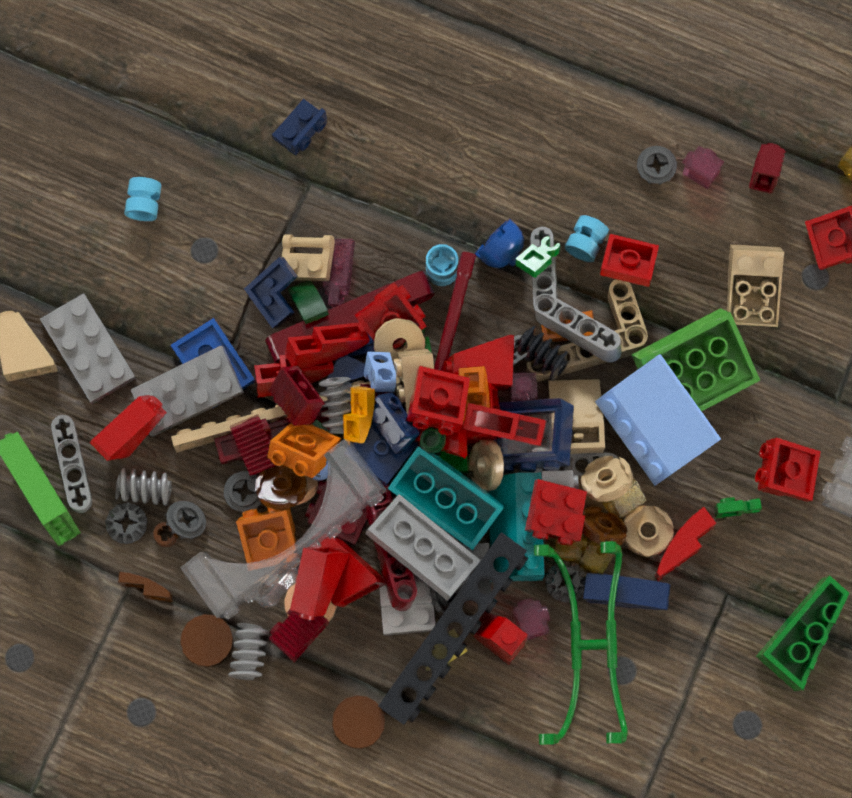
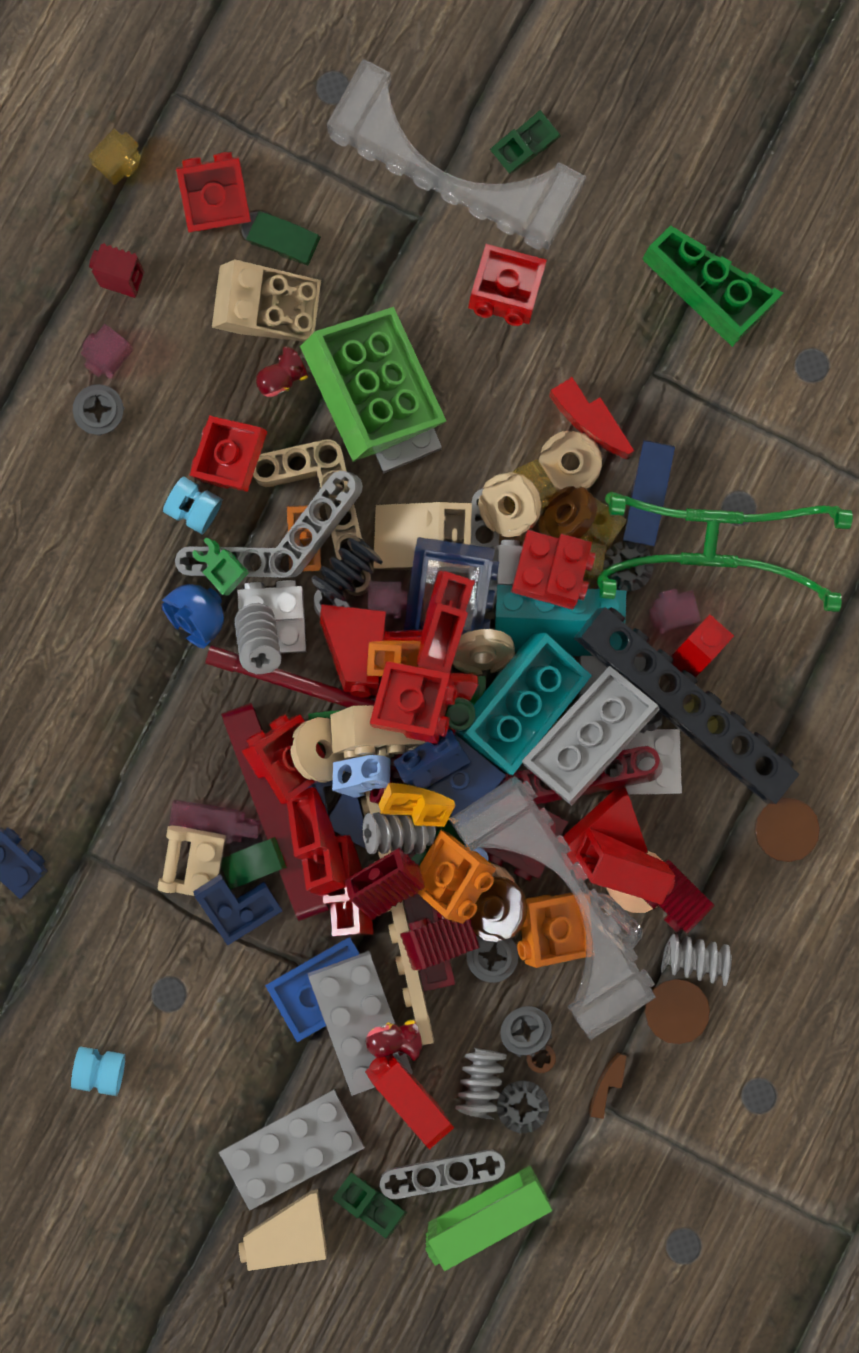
camera: 85 degrees left, 10 degrees up
(47, 407) = (369, 1205): none -> dark green slope
(175, 410) = (390, 1039): none -> dark red animal
(441, 265) = (215, 690): medium azure wheel -> none
(483, 288) = (257, 639): none -> light grey piece
(502, 306) = (288, 607): none -> white plate
(657, 420) = (443, 435): light blue slope -> none
(696, 299) = (280, 376): none -> dark red animal
(729, 507) = (550, 357): green plate -> none
(808, 294) = (283, 237): none -> dark green slope

